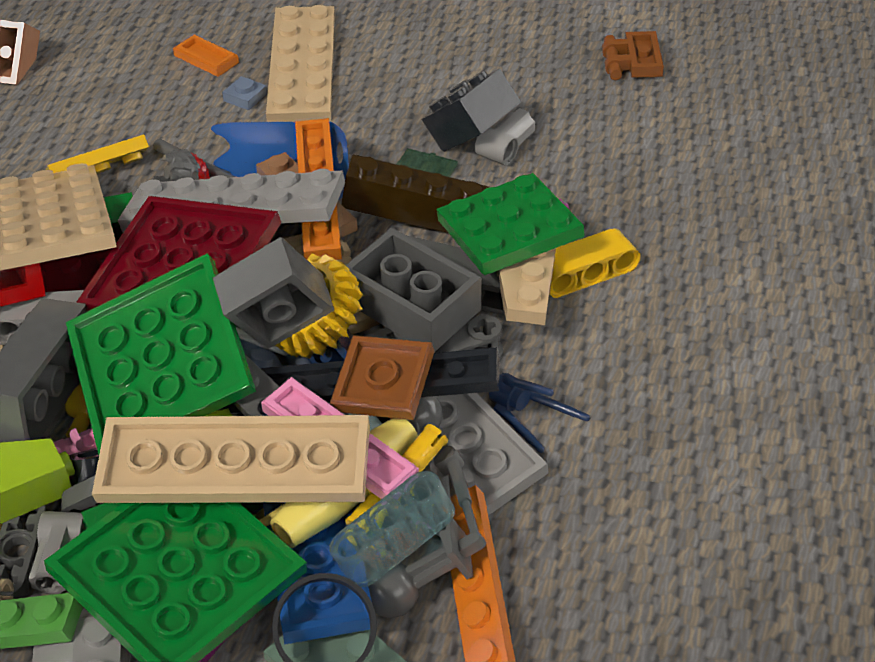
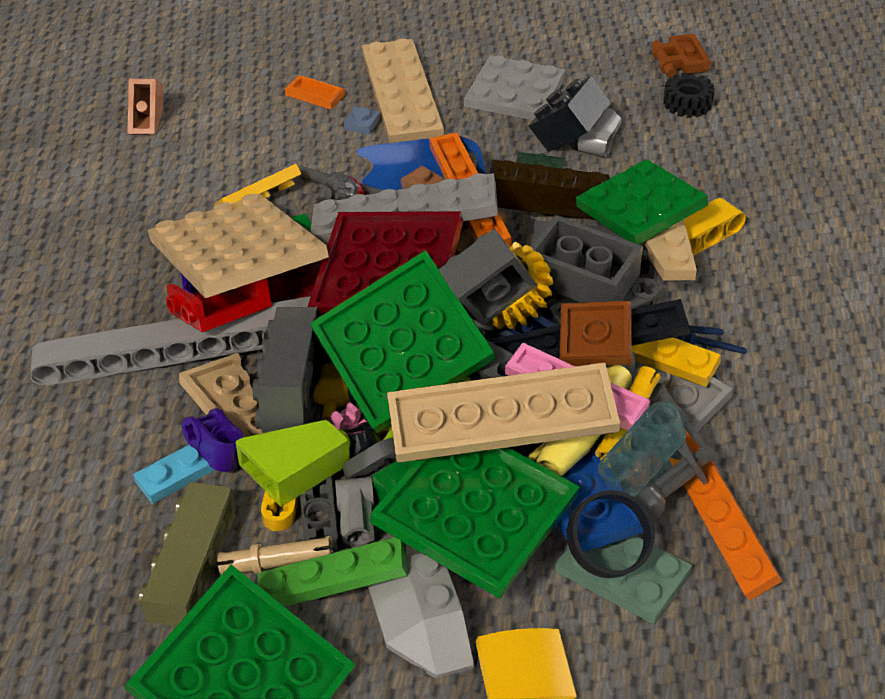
camera: 10 degrees left, 0 degrees up
(426, 70) = (513, 87): none -> light grey plate
(494, 419) = (679, 359): none -> yellow plate
(625, 102) = (688, 95): none -> black tyre

